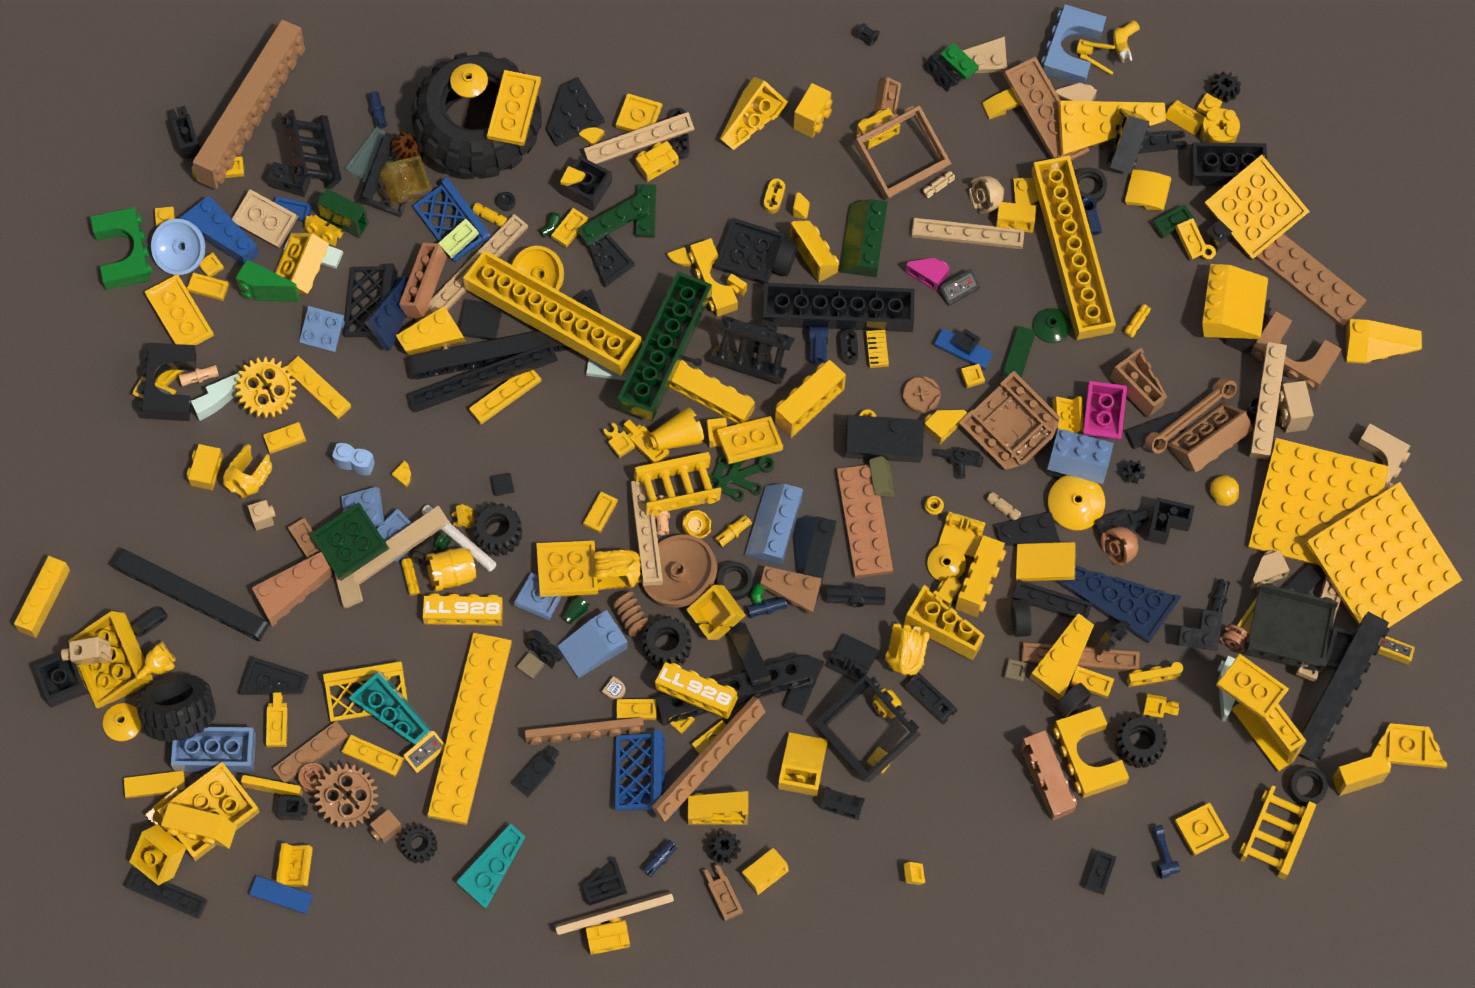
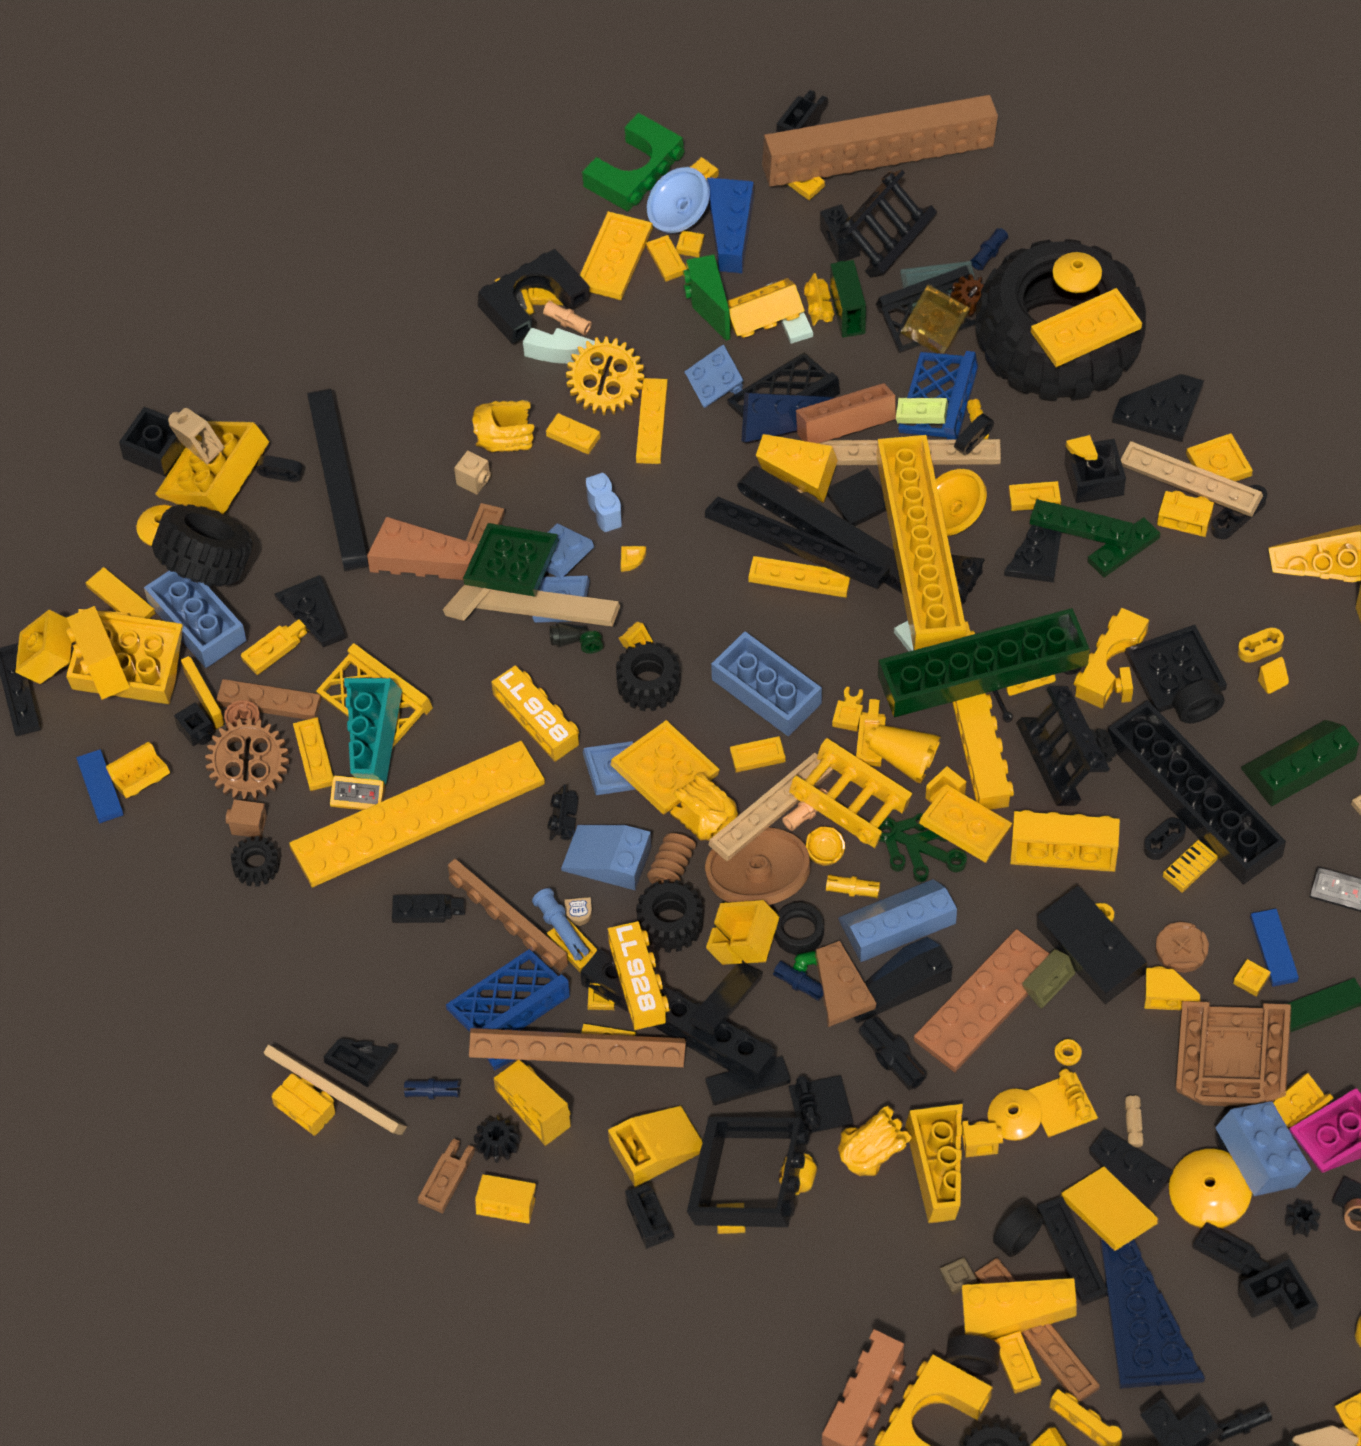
camera: 55 degrees right, 10 degrees down
(42, 597) = (224, 366): yellow brick -> none
(157, 661) = (242, 498): yellow animal -> none
(205, 467) = (476, 390): yellow brick -> none
(264, 218) = (779, 246): tan plate -> none
(299, 208) = (812, 259): blue tile -> none
(410, 576) = (529, 644): yellow axle -> none
(451, 568) = (566, 666): yellow piece -> none
(463, 542) = (609, 664): white axle -> none
(489, 869) = (283, 943): teal wing -> none
(502, 224) = (974, 434): none -> black beam
(503, 484) = (704, 648): black tile -> none
(506, 201) = (1007, 424): black tile -> none
(530, 666) = (533, 817): dark tan tile -> none
(554, 222) = (1029, 476): dark green arm -> none
(563, 470) = (766, 683): none -> medium blue brick
(576, 608) = (631, 809): dark green cone -> none
(591, 135) = (1155, 439): yellow tile -> none
(611, 704) = (555, 915): none -> medium blue pin
(679, 257) = (1103, 613): yellow tile -> none
(814, 250) = (1236, 721): yellow slope -> none
(818, 344) = (1143, 802): dark blue piece -> none
(914, 873) = (632, 1345): yellow plate -> none
(928, 271) = (1326, 846): dark pink slope -> none
(930, 698) = (846, 1212): black plate -> none
(962, 457) = (1148, 1037): black piece -> none
(967, 341) = (1282, 940): black plate -> none
(979, 577) = (1028, 1155): yellow wedge -> none
(1110, 637) = (1093, 1341): black wing -> none
(1120, 544) = (1203, 1269): nougat cylinder -> none

